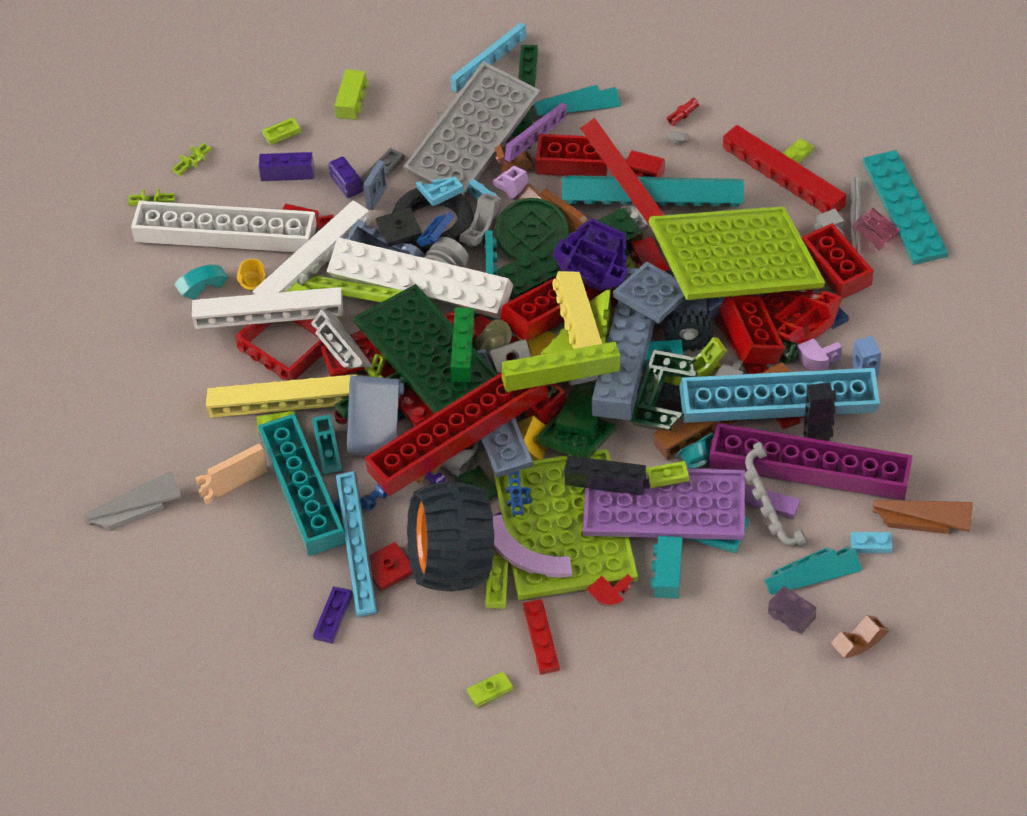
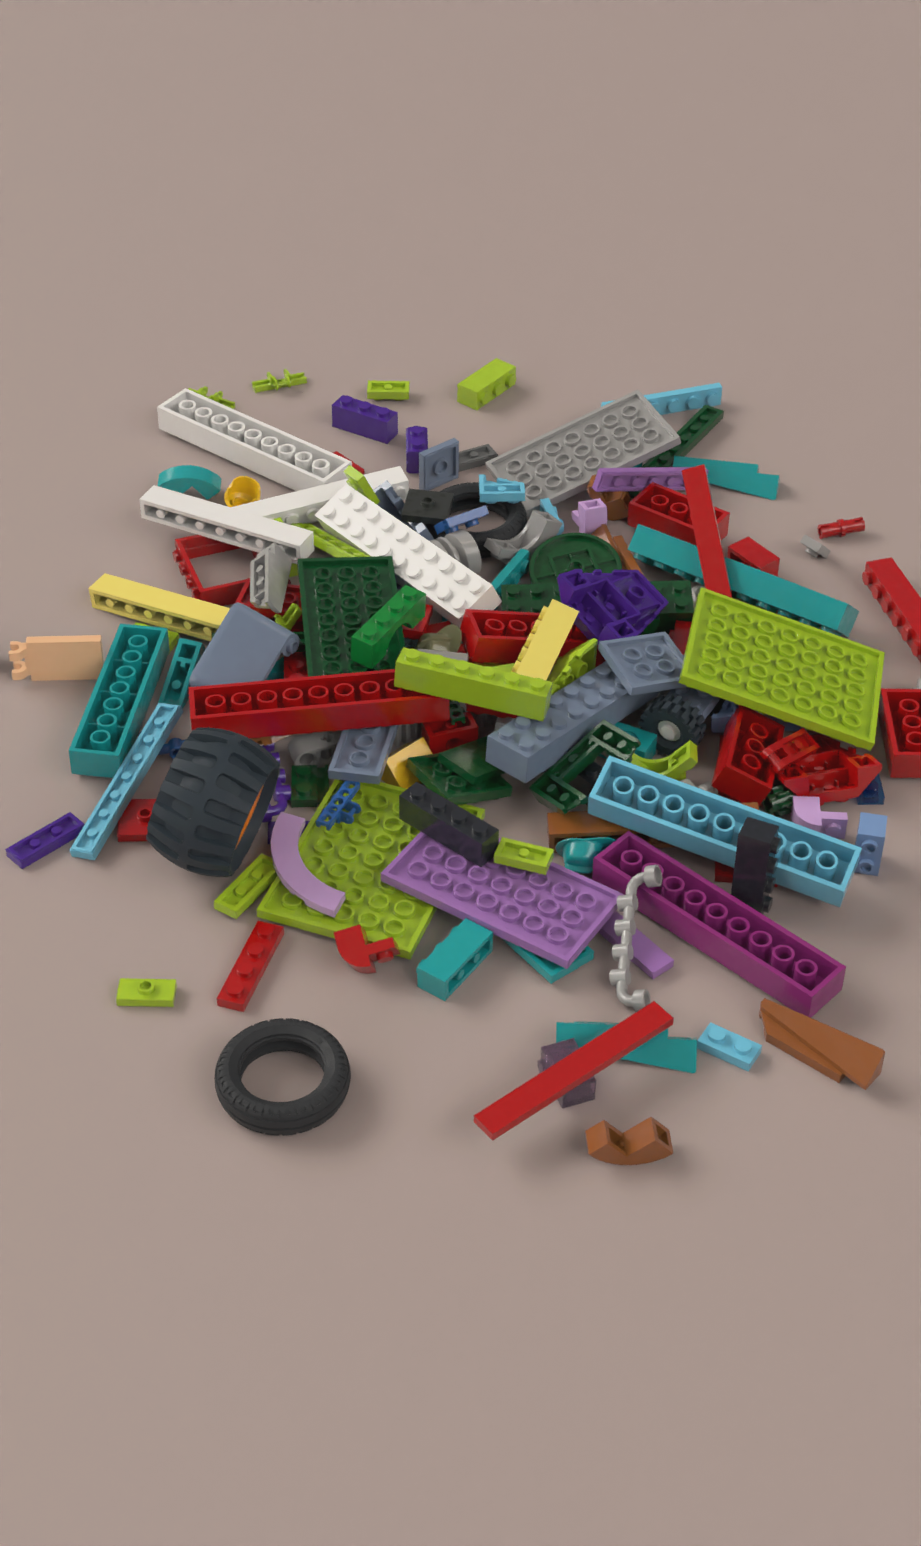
camera: 25 degrees right, 10 degrees down
(347, 233) = (360, 484): none -> lime plate
(629, 734) = (288, 1116): none -> black tyre
(778, 313) = (790, 750): none -> red plate
(800, 608) = (572, 1070): none -> red tile

